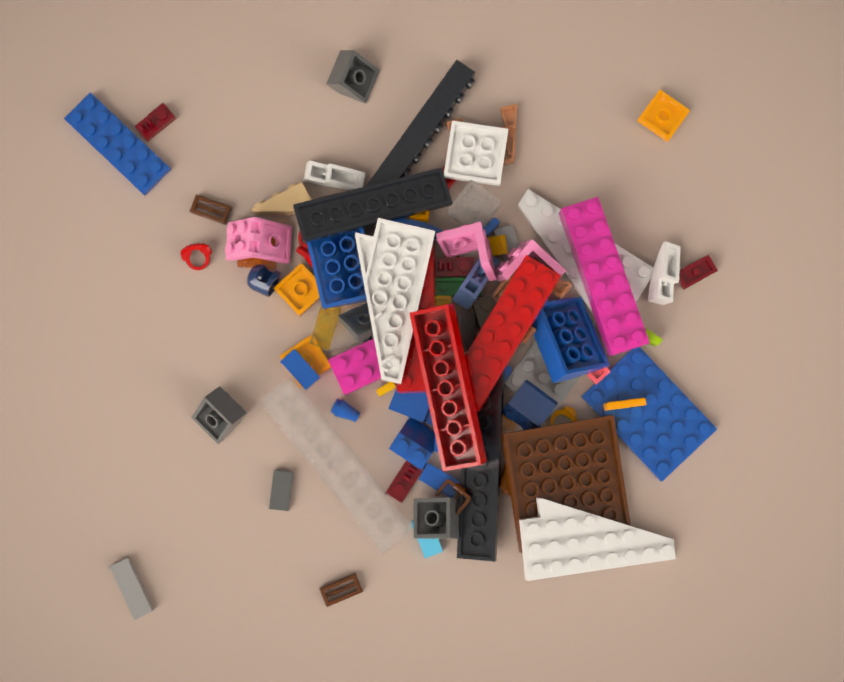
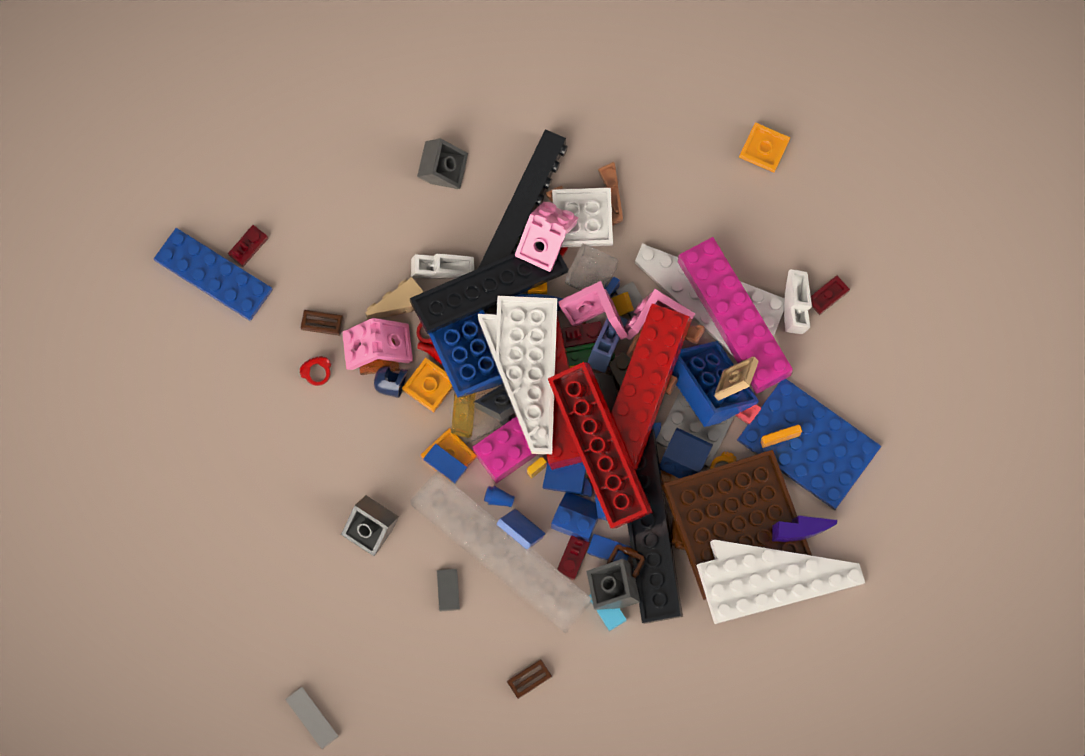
camera: 10 degrees left, 10 degrees down
(359, 447) = (521, 529): none -> blue tile
(439, 156) = (550, 227): none -> bright pink bracket
(594, 343) = (736, 378): none -> tan tile
(626, 499) = (800, 528): none -> dark purple slope
(653, 338) = (798, 368): lime tile -> none

